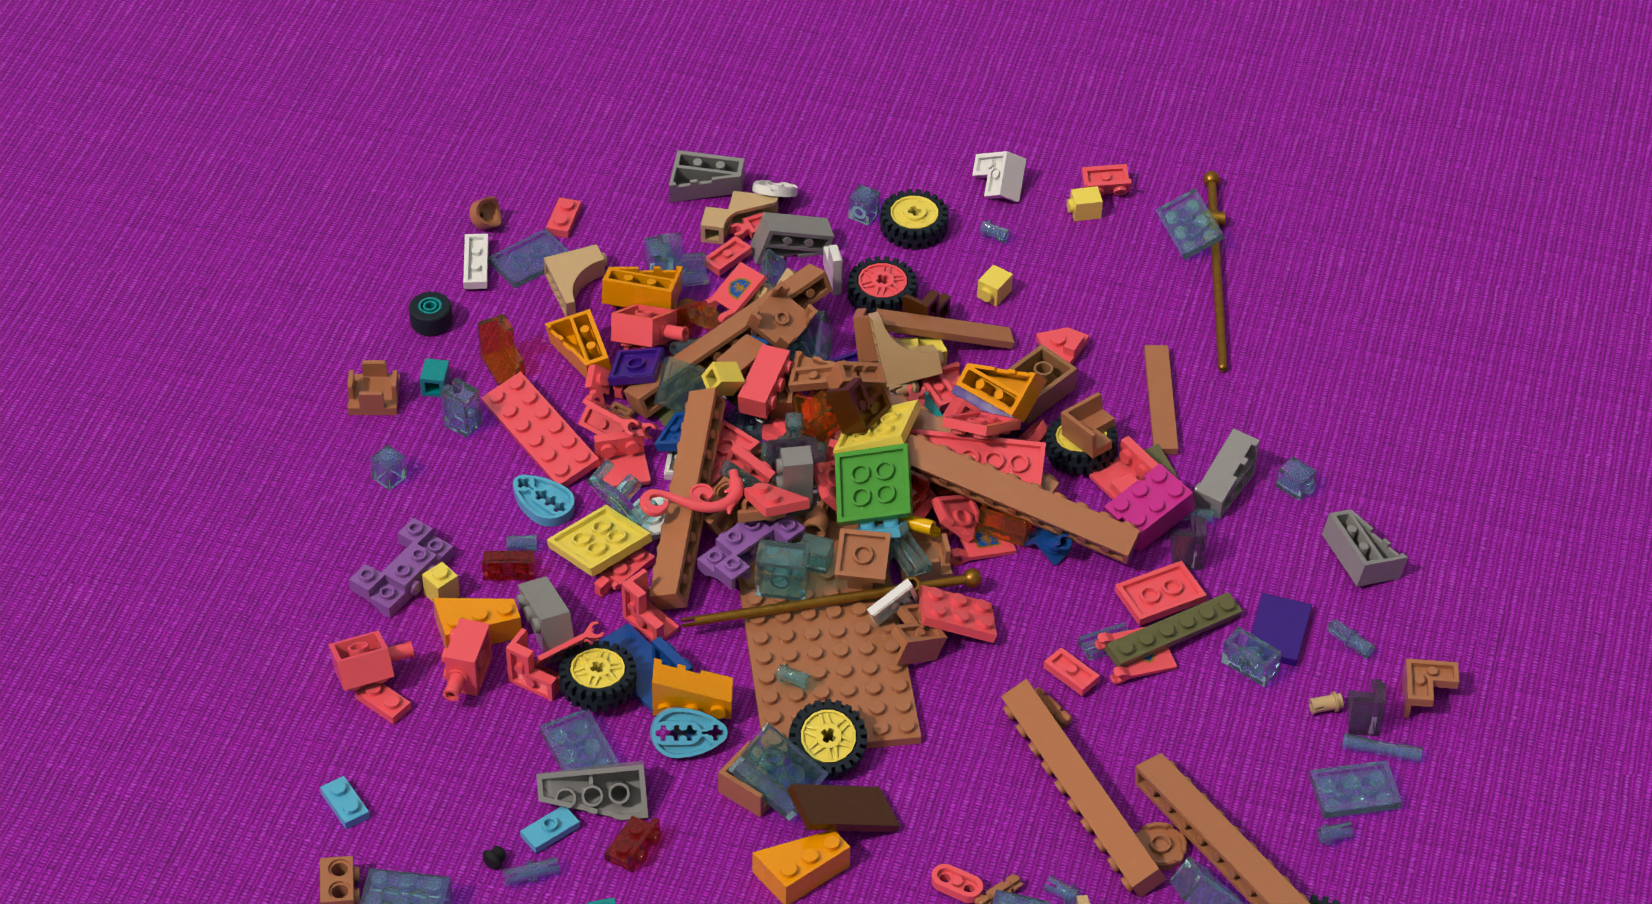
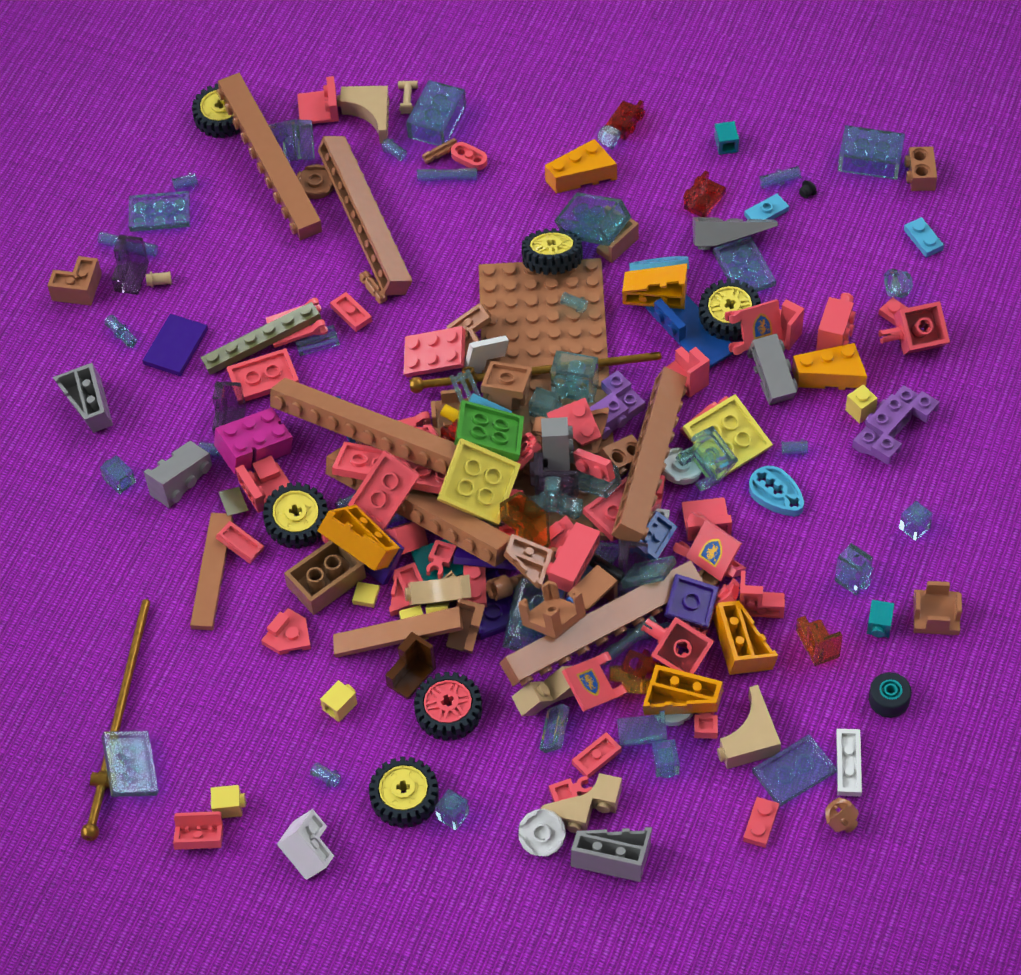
camera: 170 degrees left, 10 degrees up
(383, 728) = (897, 283): none -> clear light blue piece
(508, 565) = (805, 425): clear red bracket -> none
(540, 430) = (781, 559): coral plate -> none
(565, 387) = (761, 603): none -> coral panel
(694, 503) = (644, 426): coral plant -> none
(723, 376) = (612, 546): light yellow brick -> none
(791, 236) = (531, 765): light grey wedge -> none
(833, 266) = (493, 723): tile -> none
(843, 808) = (546, 195): reddish brown tile -> none
(844, 371) = (491, 515): nougat brick -> none
(857, 409) = (491, 492): reddish brown panel -> none
(1001, 858) = (434, 174): none -> clear light blue piece
(1085, 424) = (294, 503): nougat panel -> none
(1138, 420) = (240, 542): none -> coral tile
(1251, 656) = (206, 307): clear light blue brick -> none

